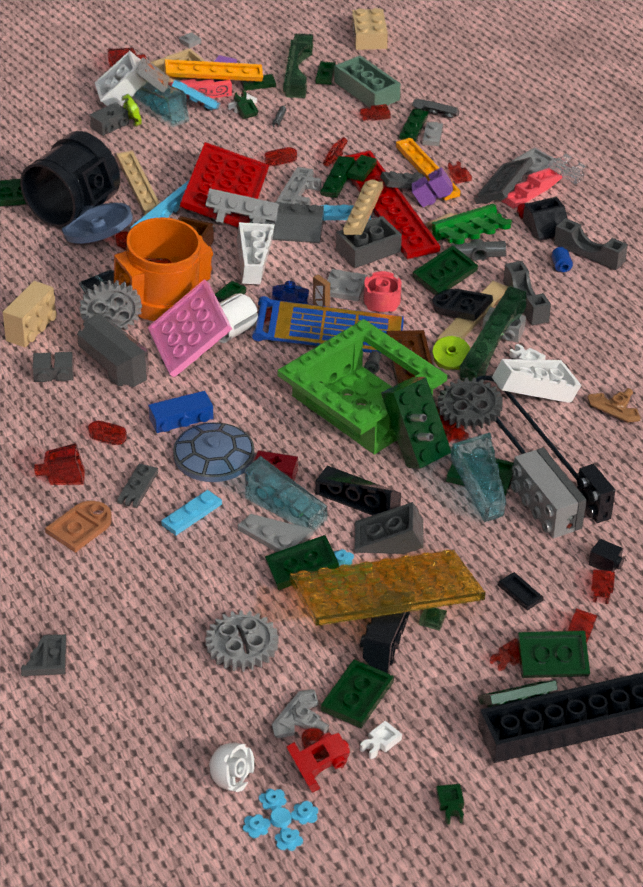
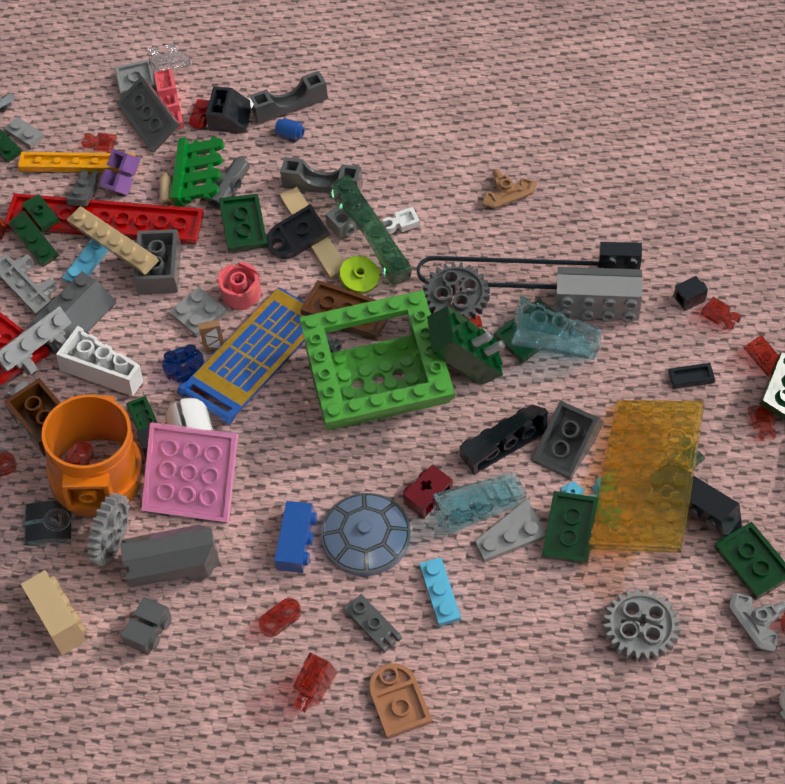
camera: 55 degrees left, 15 degrees up
(537, 378) = (453, 227): white wedge -> none

